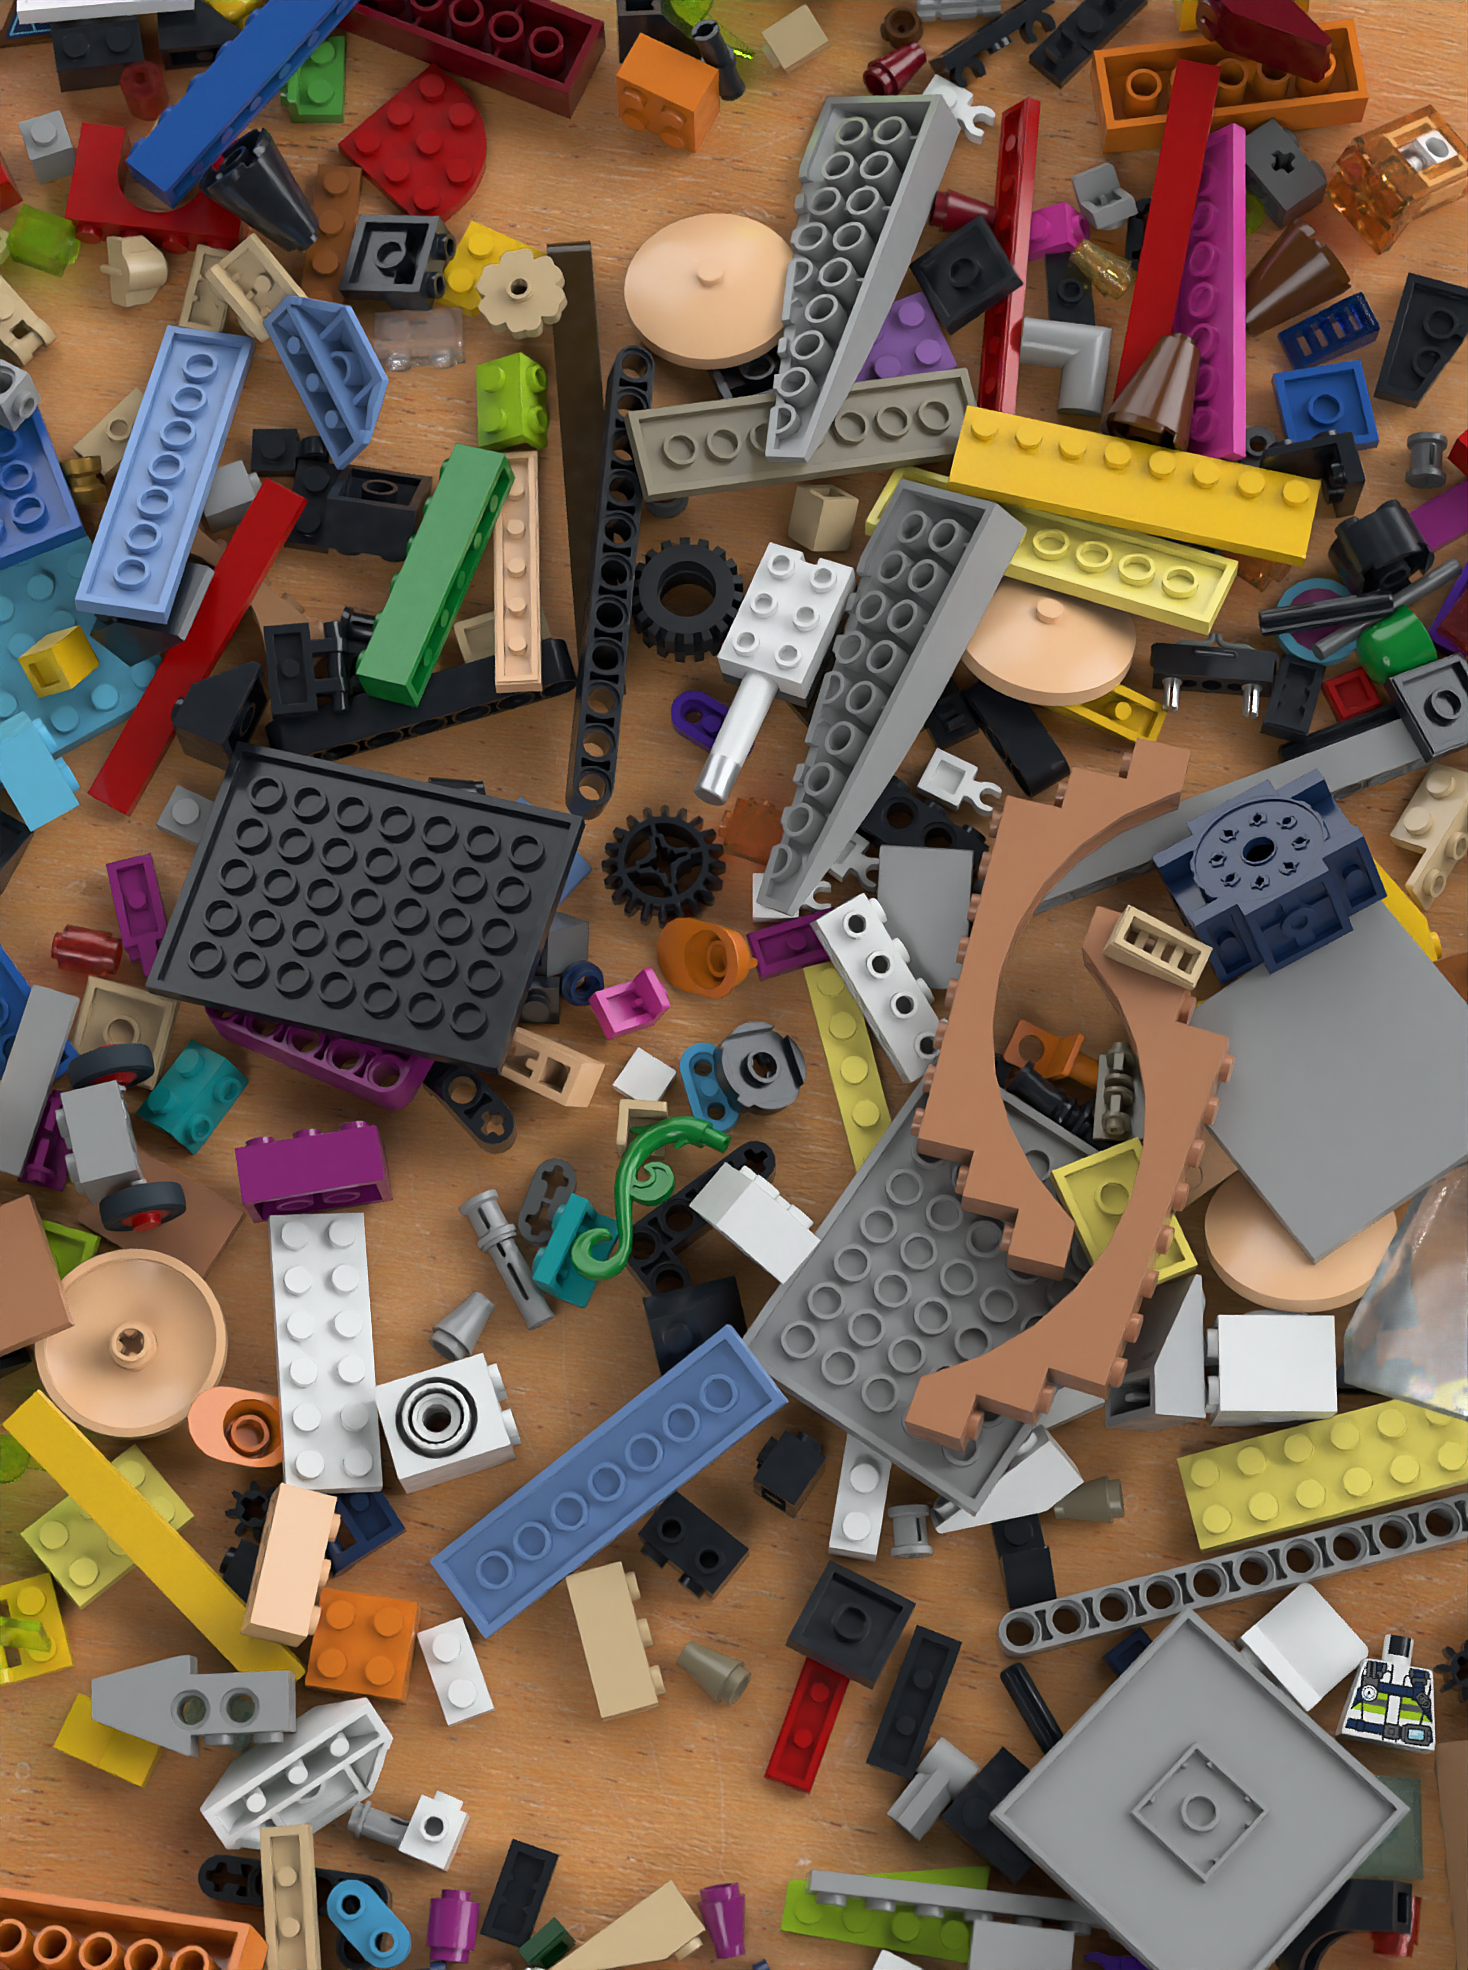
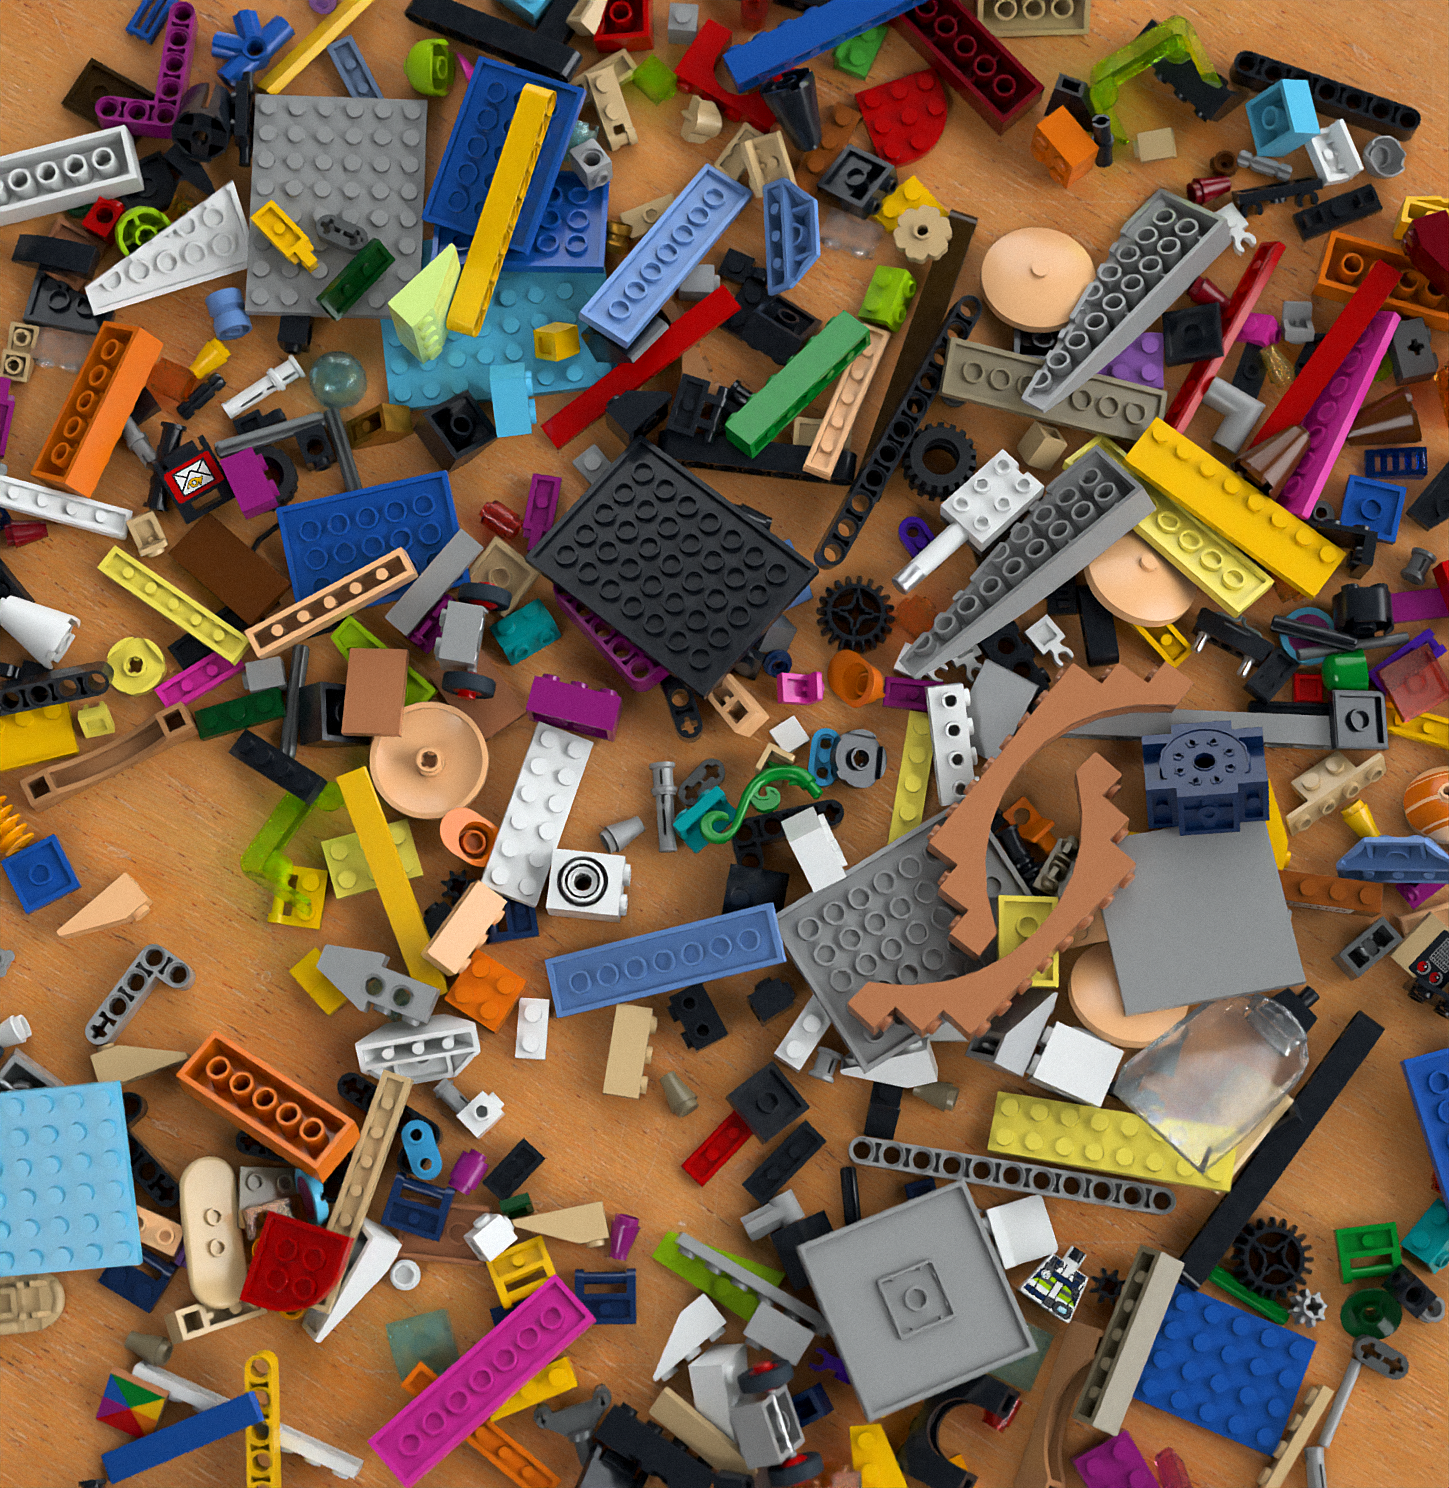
camera: 20 degrees right, 5 degrees up
(1137, 958) = (1110, 800): tan slope -> none

